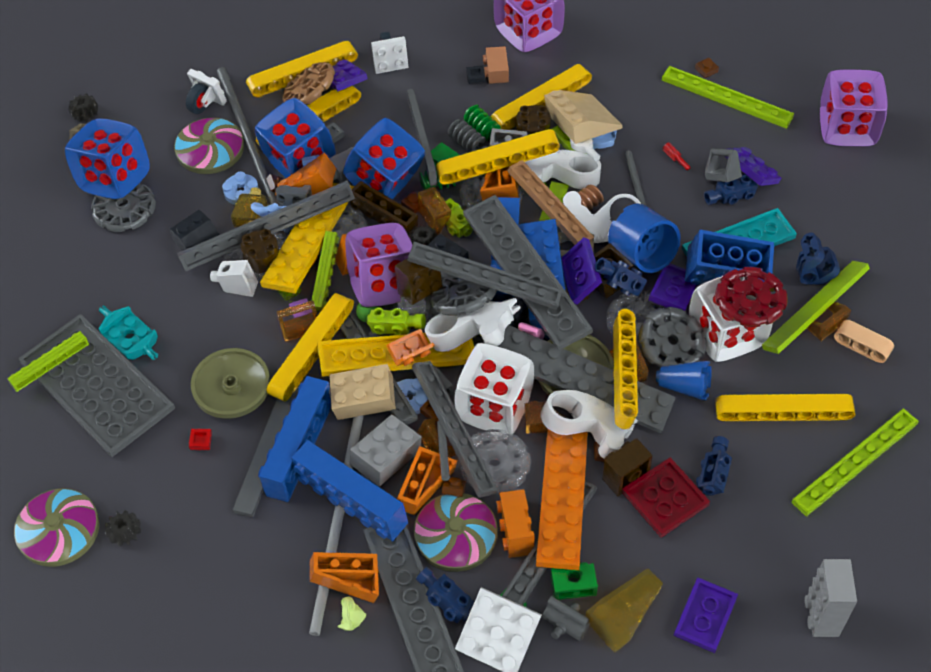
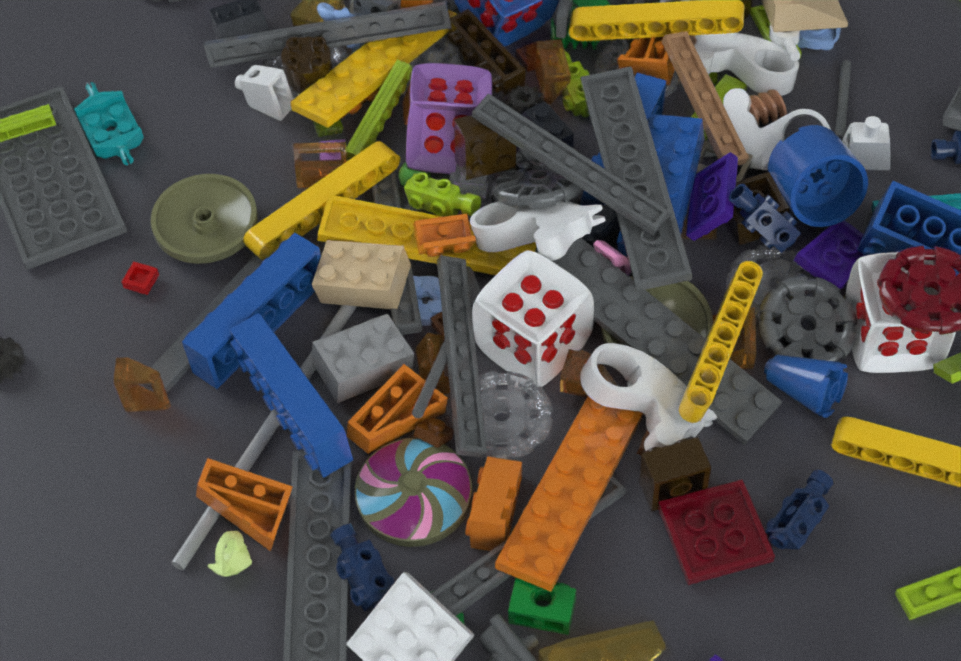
camera: 20 degrees right, 0 degrees up
(237, 525) = (133, 396): none -> clear orange tile
(667, 204) = (869, 143): none -> white torso
(674, 154) = (911, 82): red axle -> none

